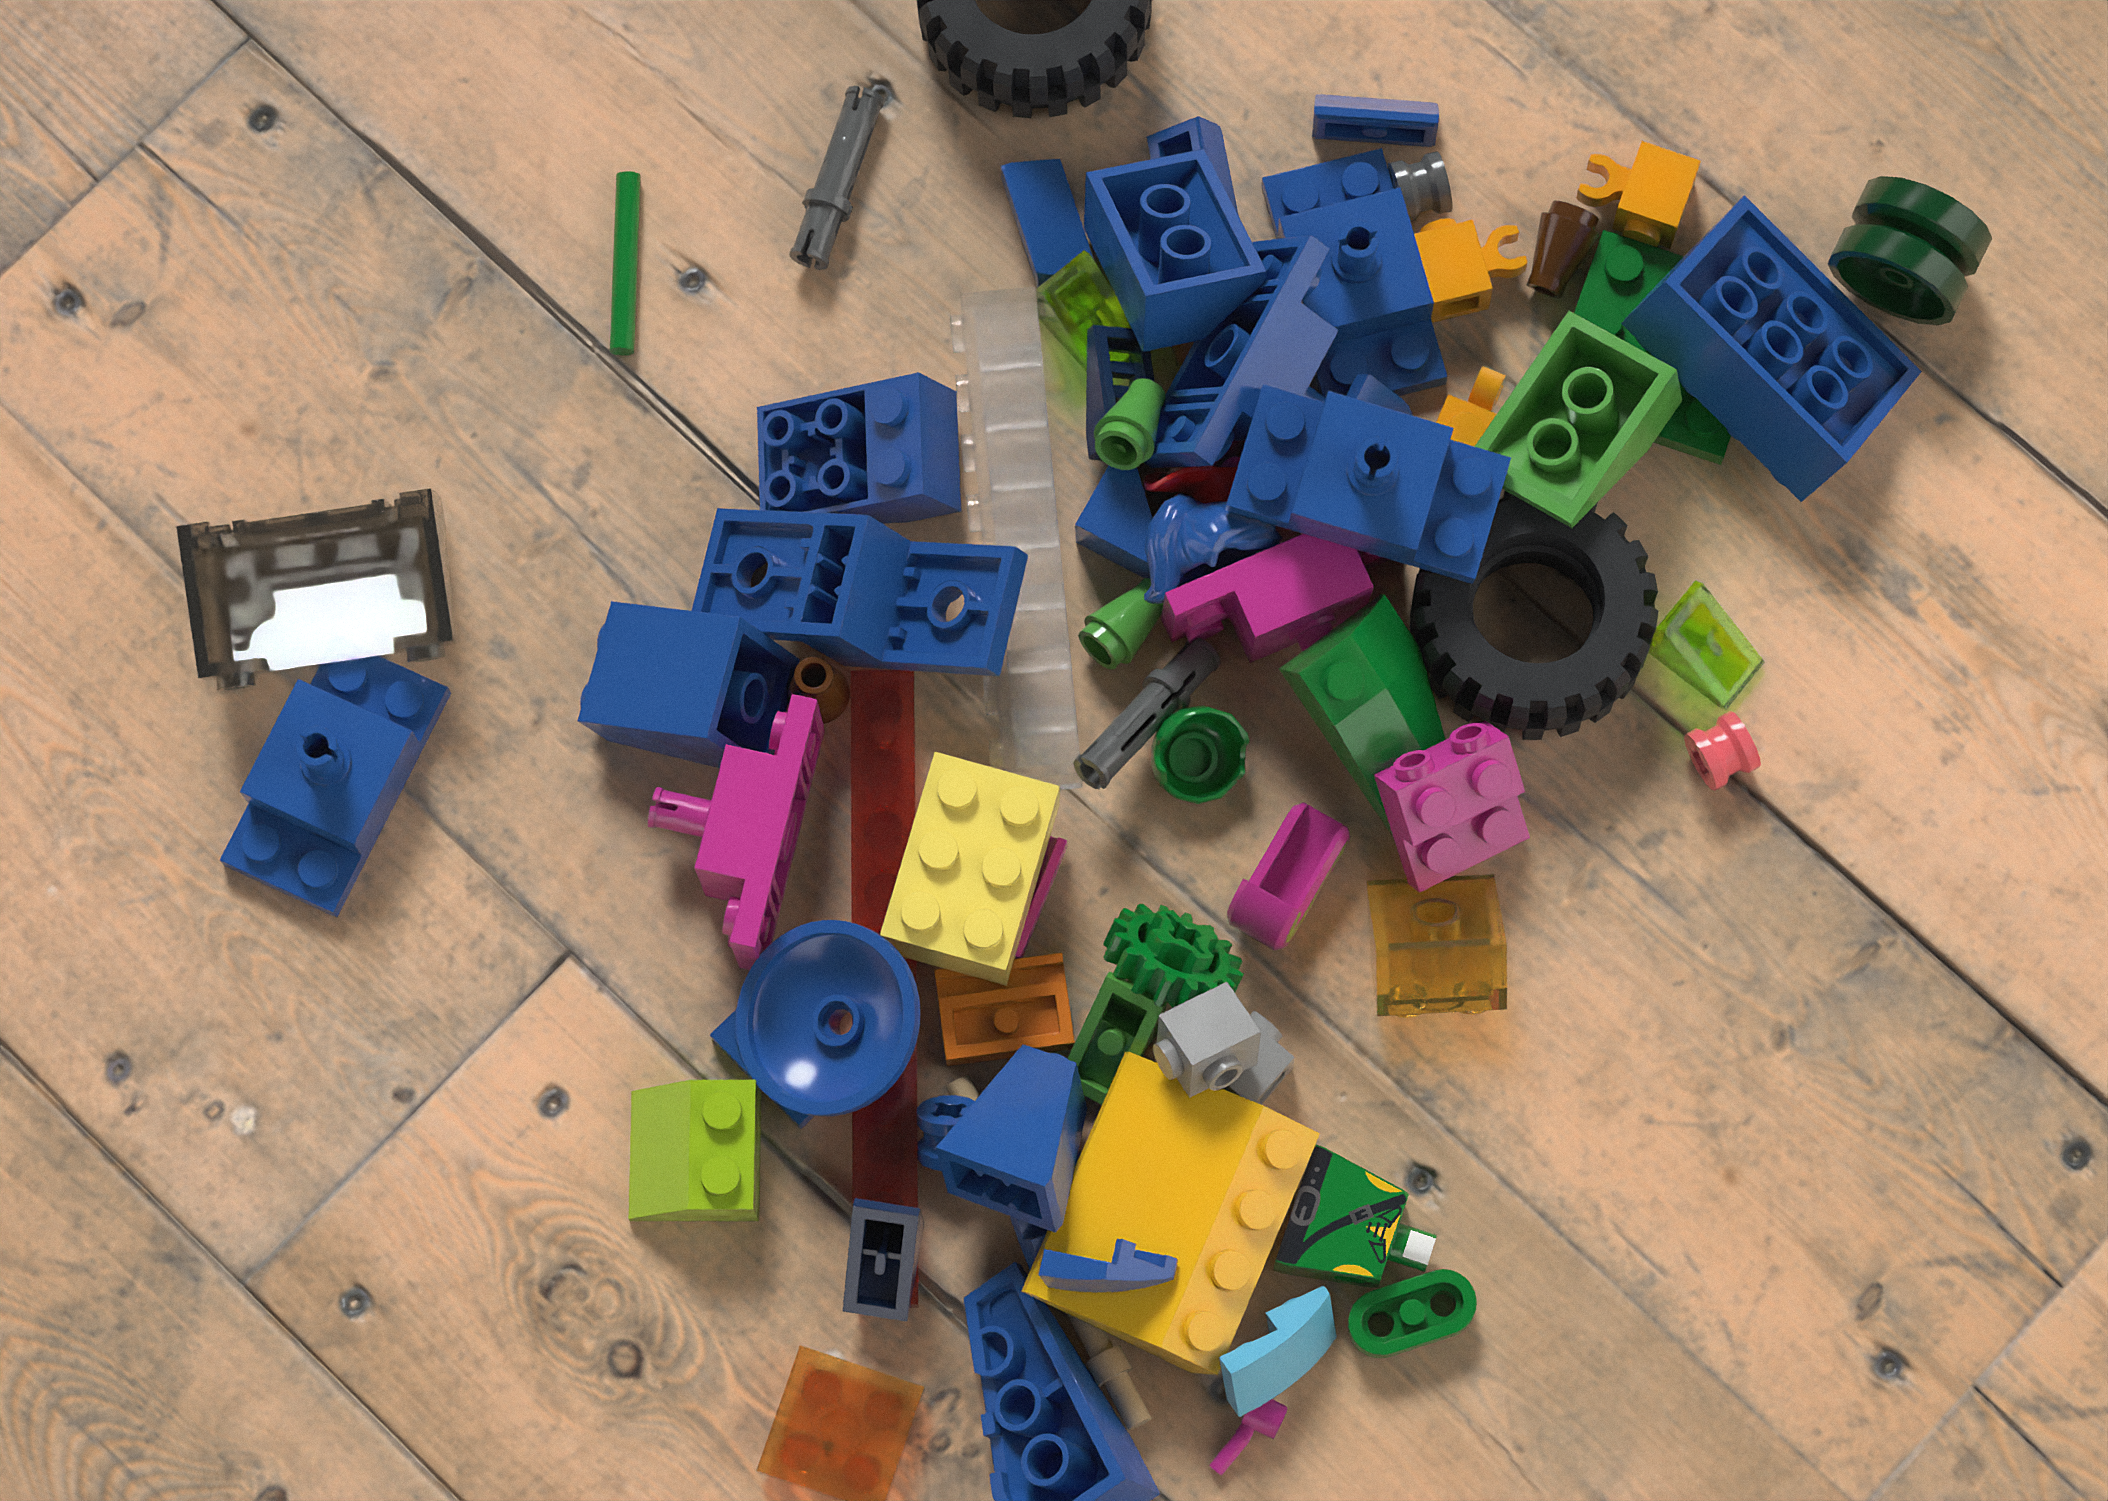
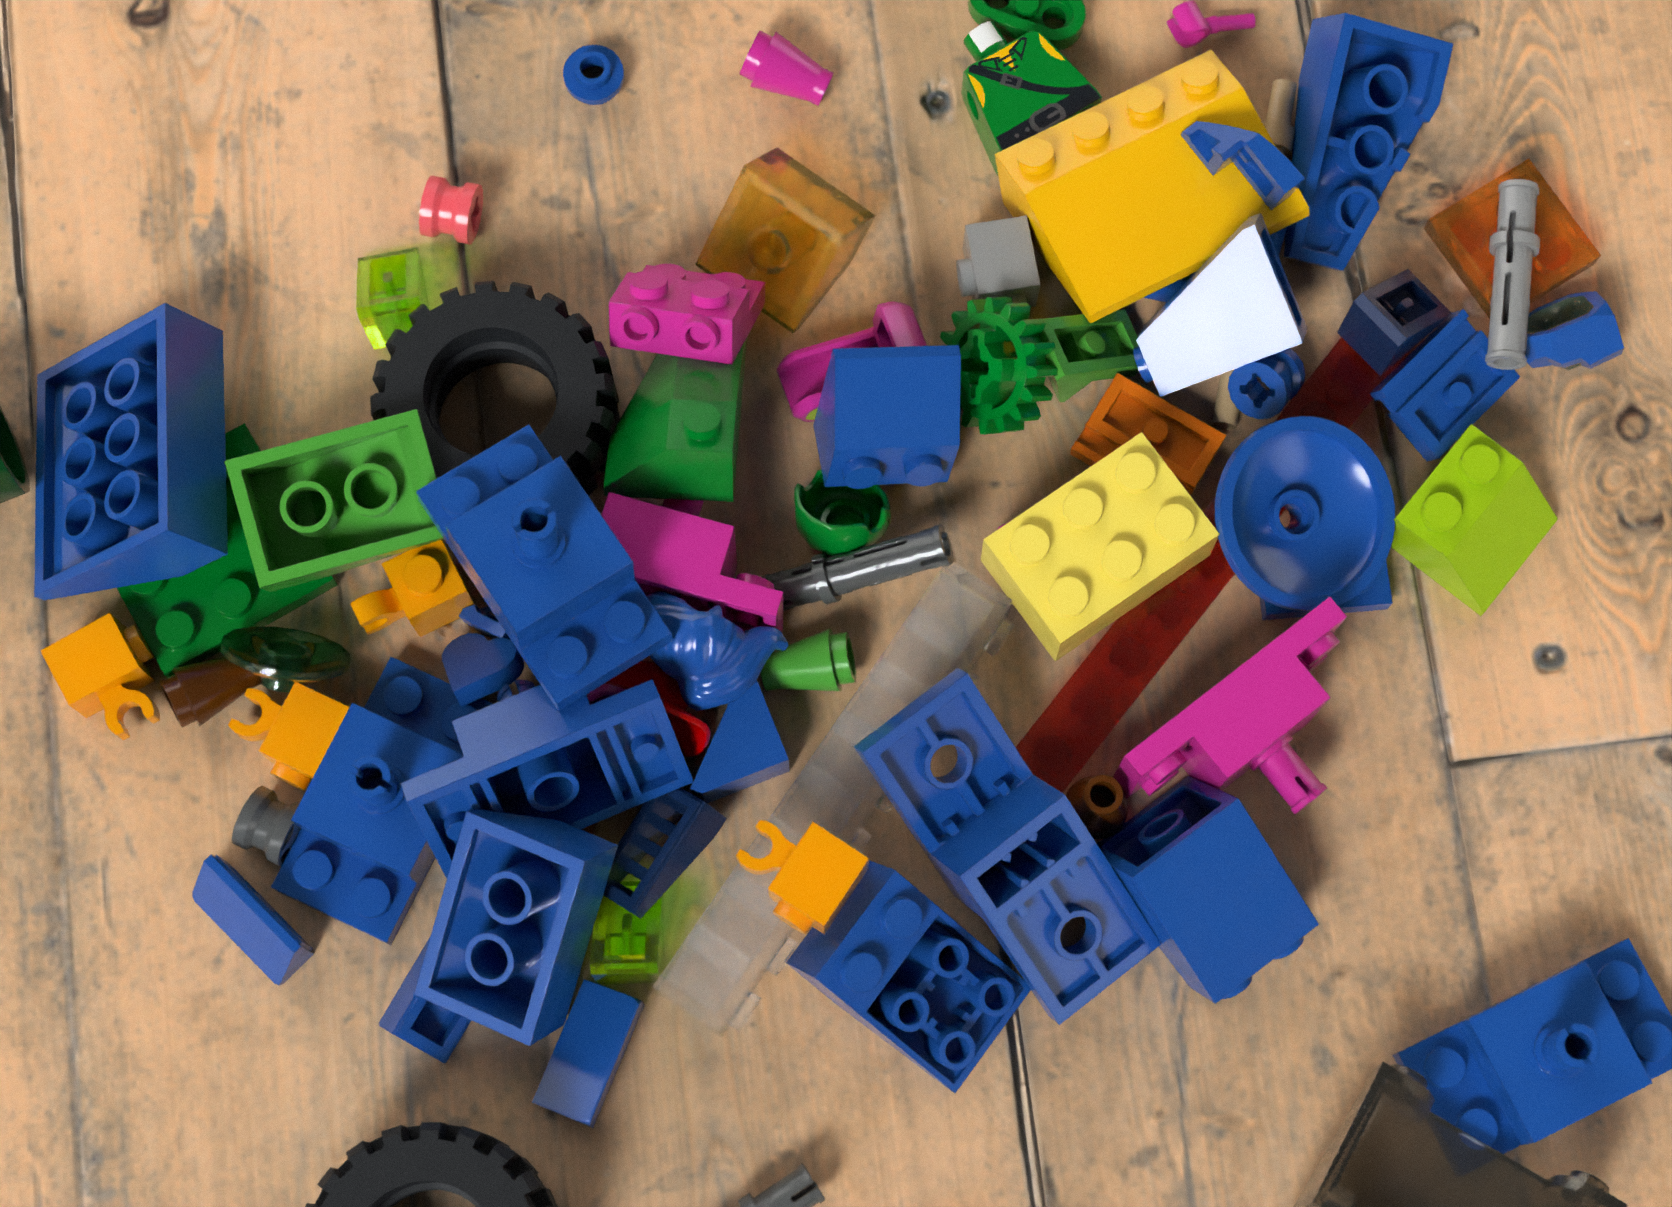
camera: 145 degrees left, 0 degrees up
(735, 1378) = (1573, 332): none -> blue rock
(800, 1249) = (1443, 386): none -> blue plate
(828, 1398) = (1513, 250): none -> light grey pin
(980, 443) = (811, 877): none -> light orange brick
(1130, 427) = (680, 791): bright green cone -> none
(1207, 1041) = (1031, 261): light grey brick -> none
(1215, 838) = (889, 416): none -> blue slope
(1296, 1340) = (1130, 47): medium azure slope -> none
(1520, 306) = (285, 655): none -> clear green dish
(1563, 1092) = (784, 69): none -> dark pink cone
(1707, 979) = (593, 90): none -> blue plate

